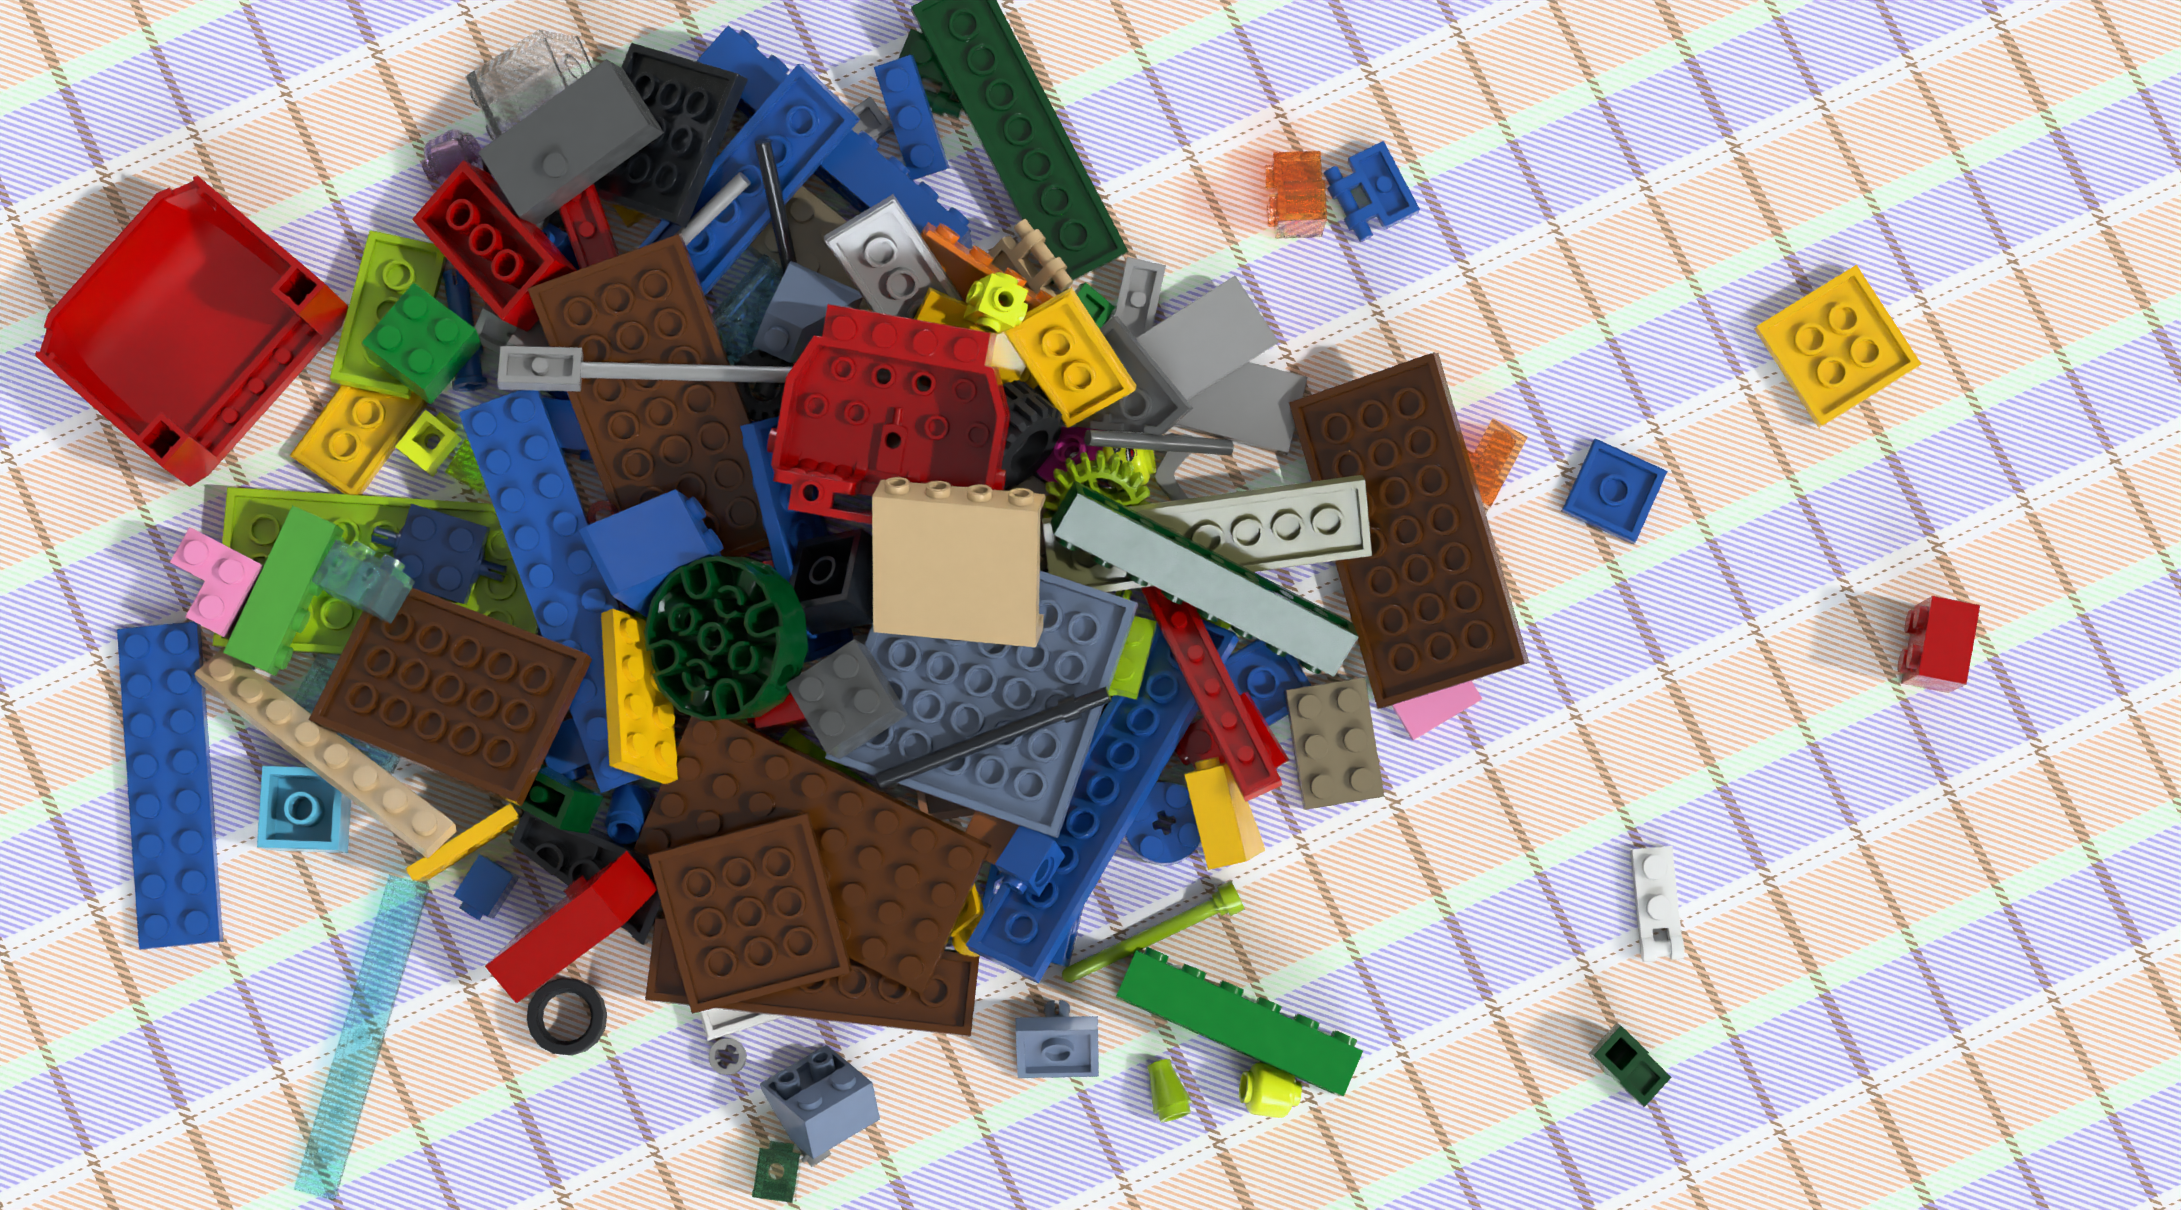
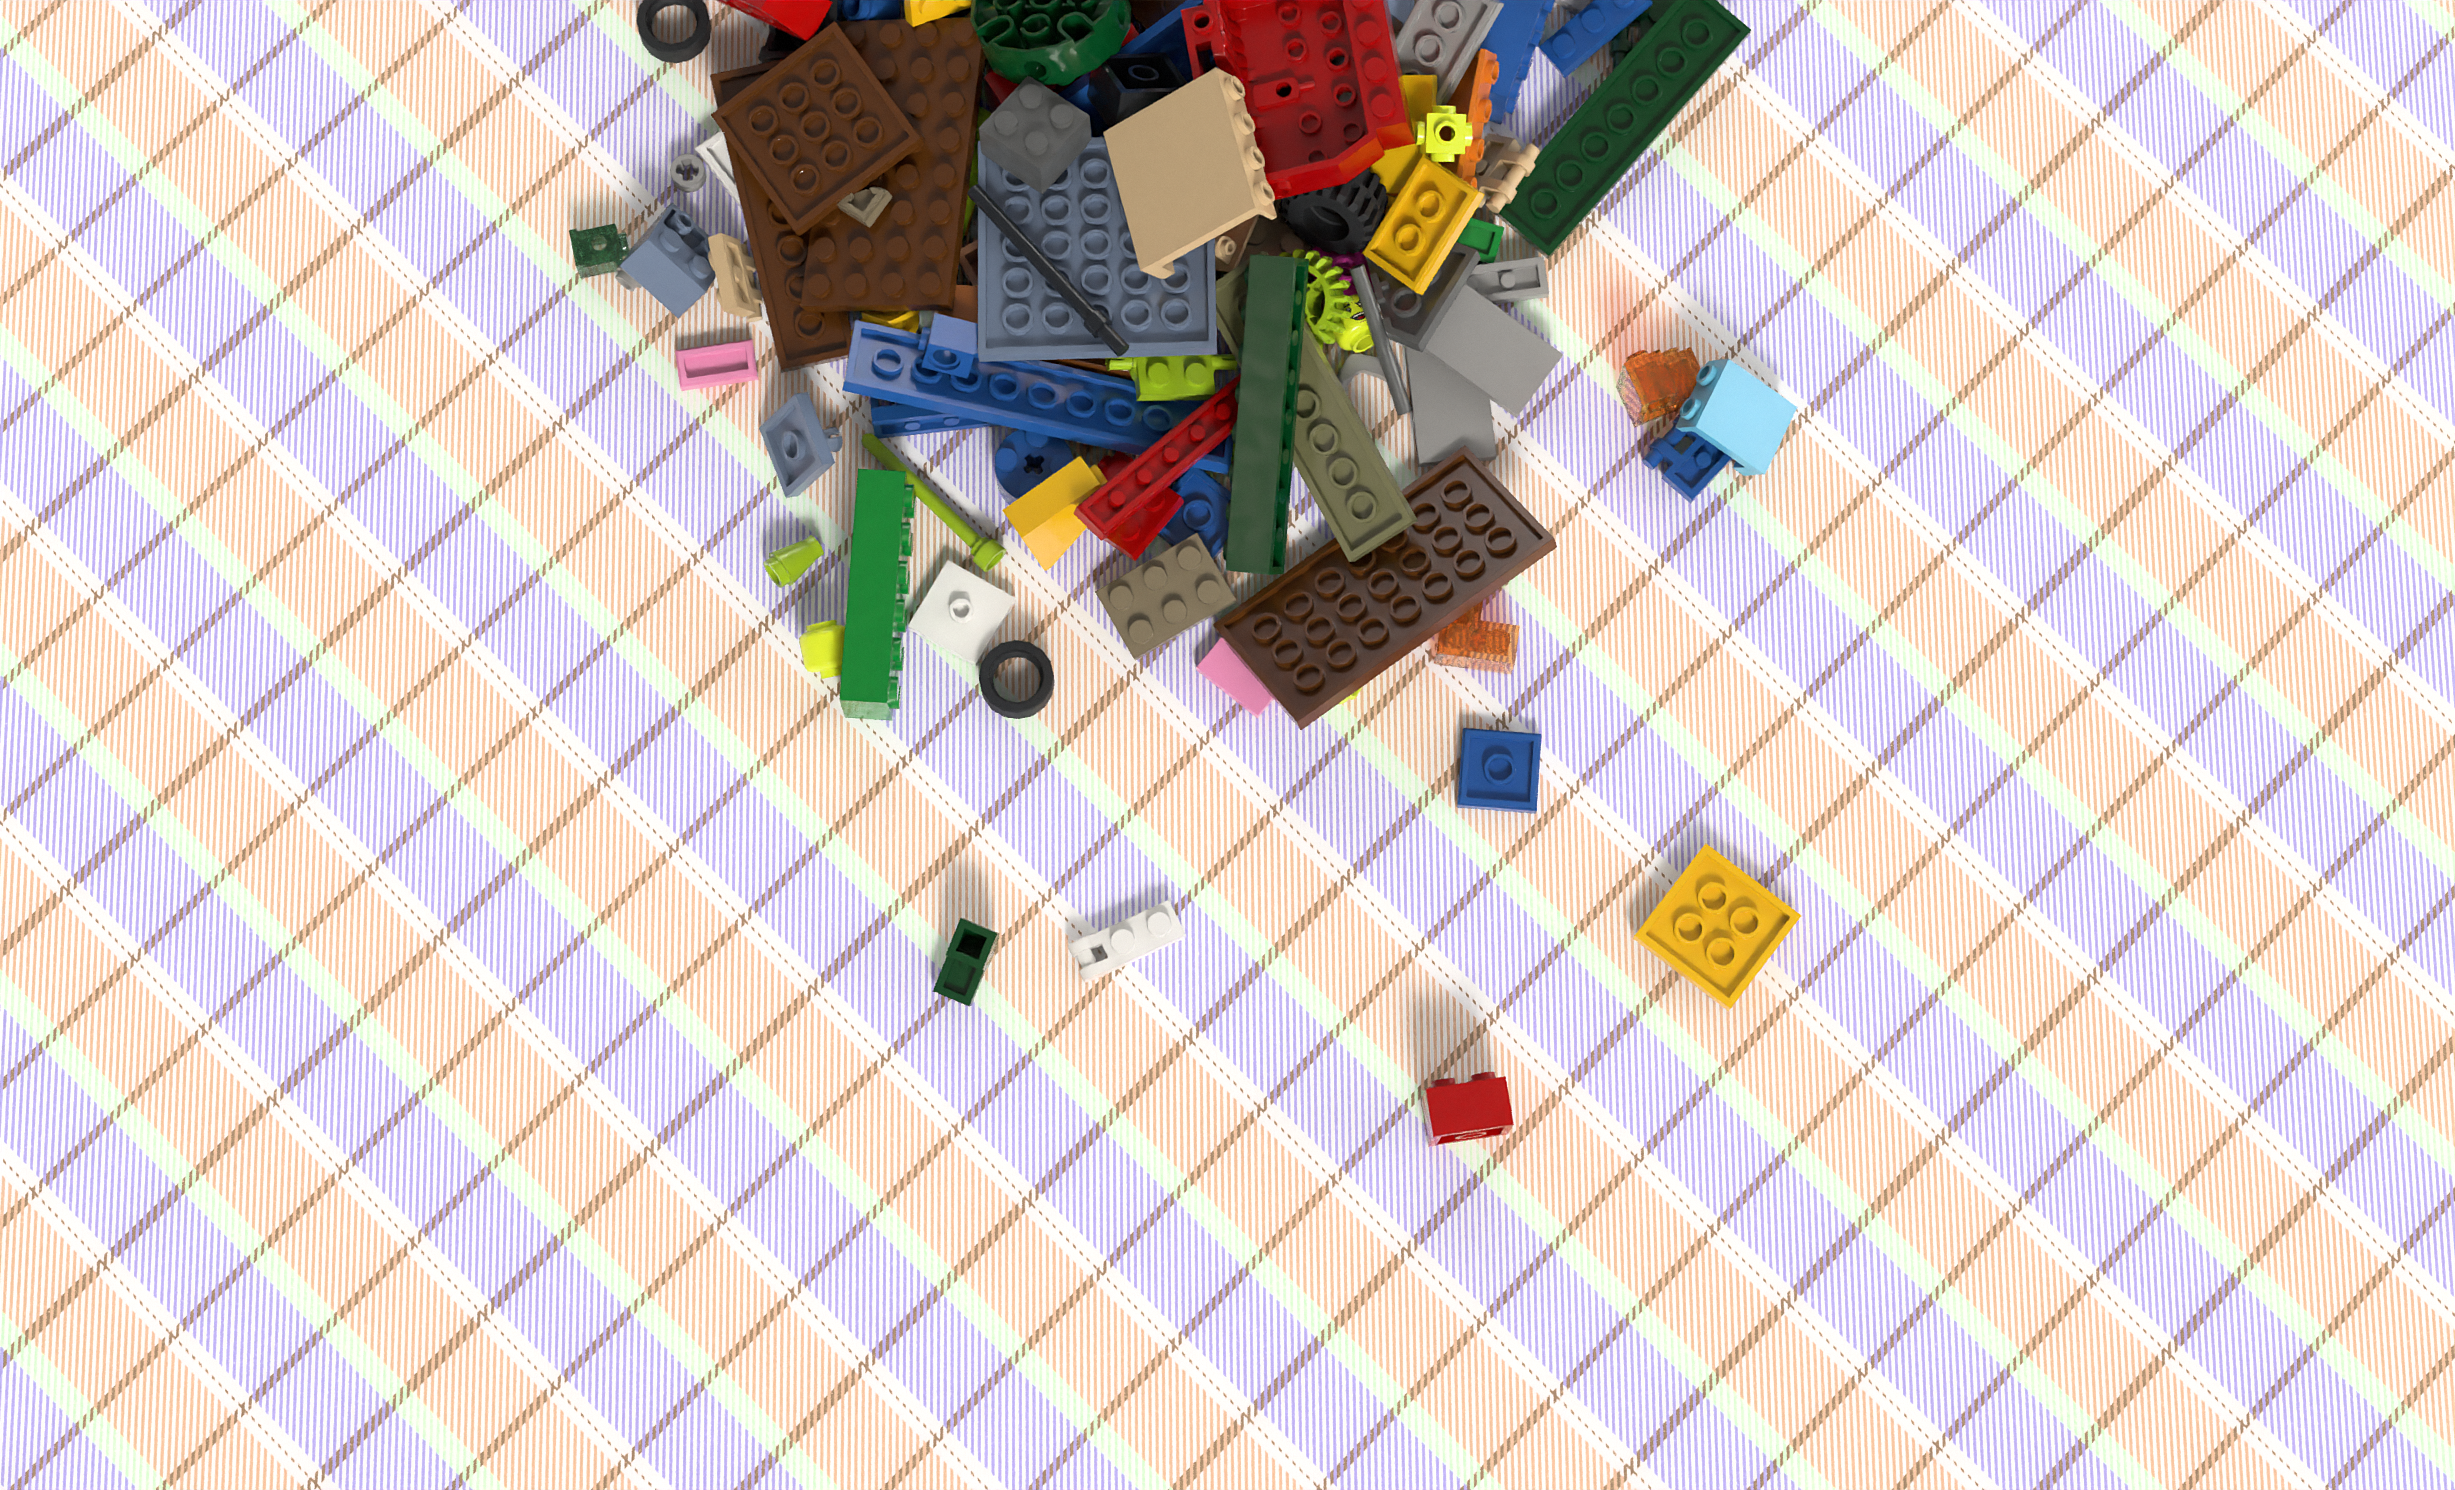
camera: 65 degrees right, 5 degrees down
(848, 892) = (865, 204): none -> dark tan tile
(863, 1048) = (735, 277): none -> tan plate
(937, 1097) = (716, 365): none -> bright pink tile
(1277, 946) = (961, 613): none -> white plate
(1358, 136) = (1737, 415): none -> panel
(1394, 907) = (1009, 650): none -> black tyre

